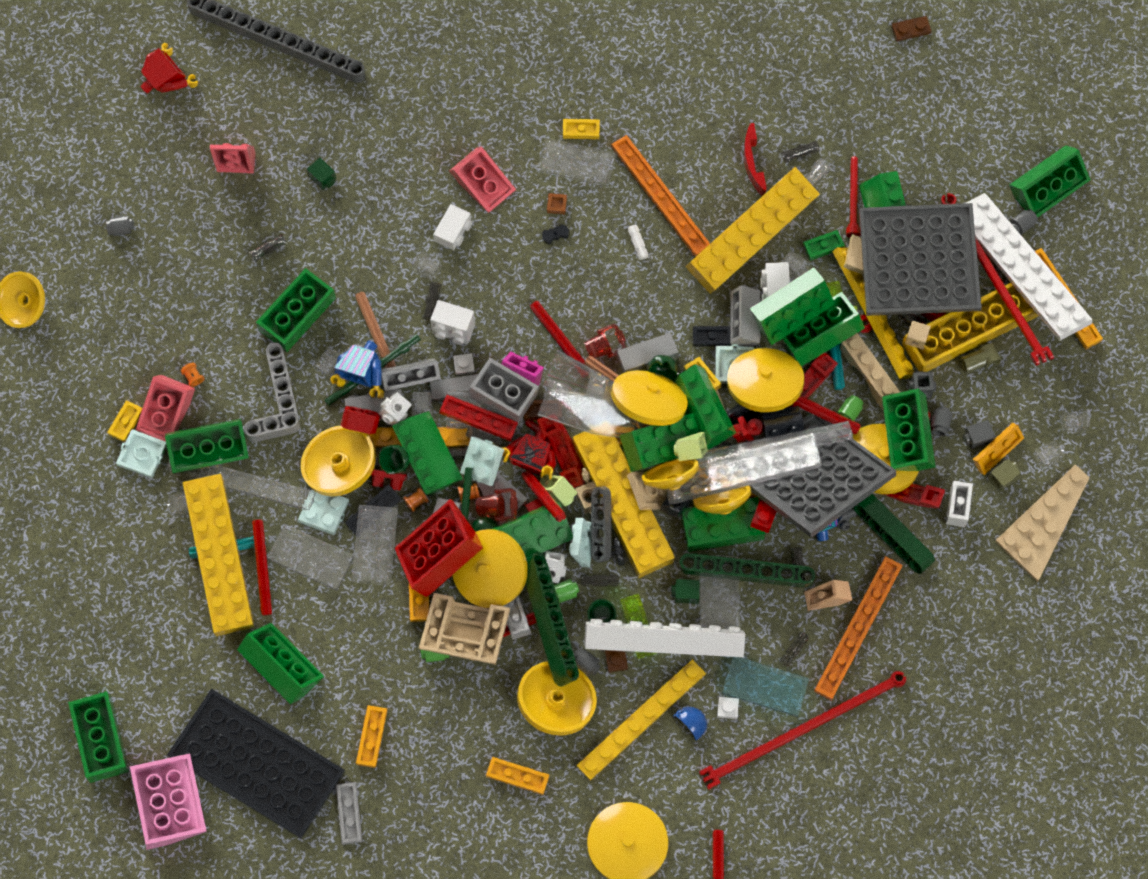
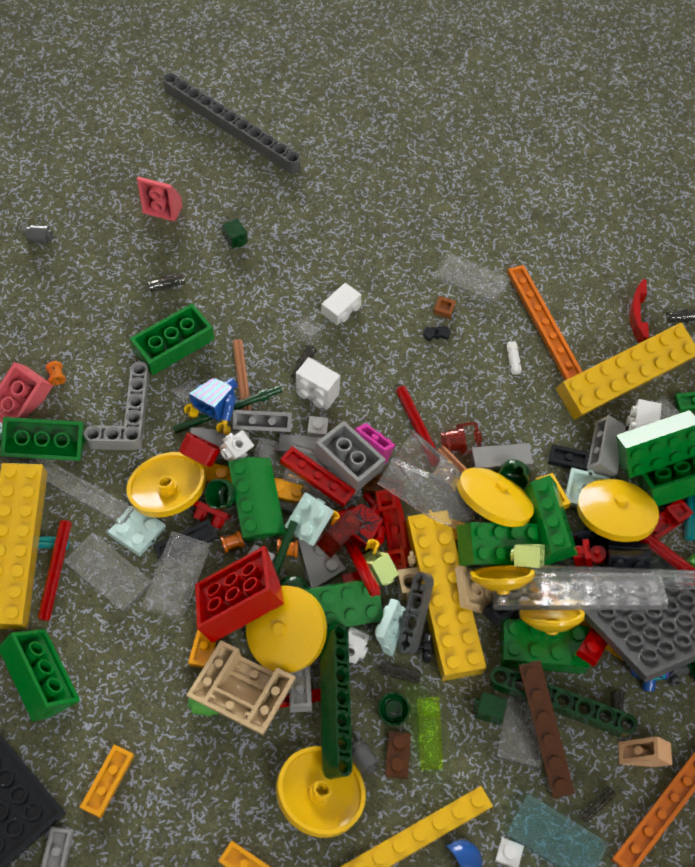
camera: 10 degrees right, 10 degrees down
(164, 73) = (124, 126): red torso -> none
(482, 179) = (380, 270): coral slope -> none
(494, 505) = (310, 566): clear red piece -> none
(514, 468) = (340, 534): none -> clear red slope
(566, 590) = (361, 674): bright green brick -> none
(581, 129) = (482, 251): yellow plate -> none
(664, 639) = (457, 755): white brick -> none
(737, 596) = (546, 729): none -> reddish brown plate

